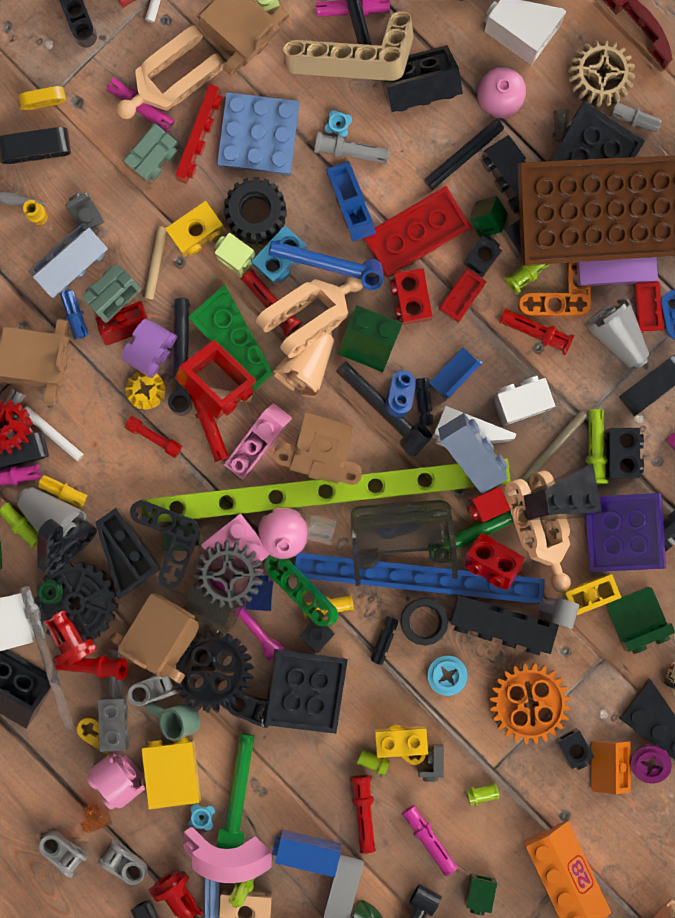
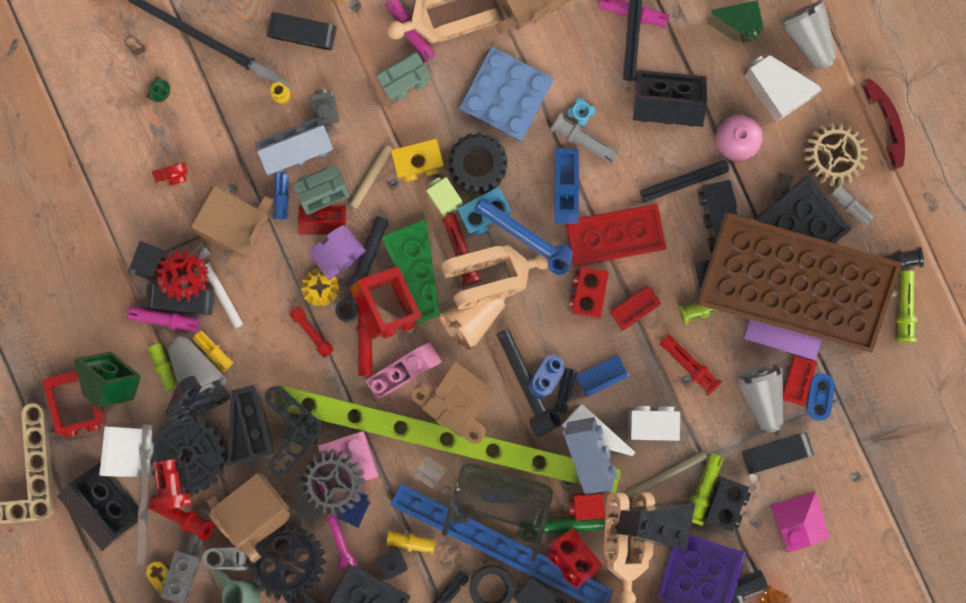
camera: 20 degrees right, 0 degrees up
(43, 591) = (162, 438): dark green plate -> none
(203, 124) = (459, 68): red plate -> none
(283, 533) = (395, 462): bright pink cylinder -> none
(298, 593) = (388, 521): green beam -> none
(355, 60) = (616, 62): tan beam -> none
(369, 338) = (537, 316): dark green slope -> none
(475, 263) = (657, 283): black brick -> none
(488, 216) = (685, 246): dark green panel -> none
(573, 294) = (735, 343): orange beam -> none

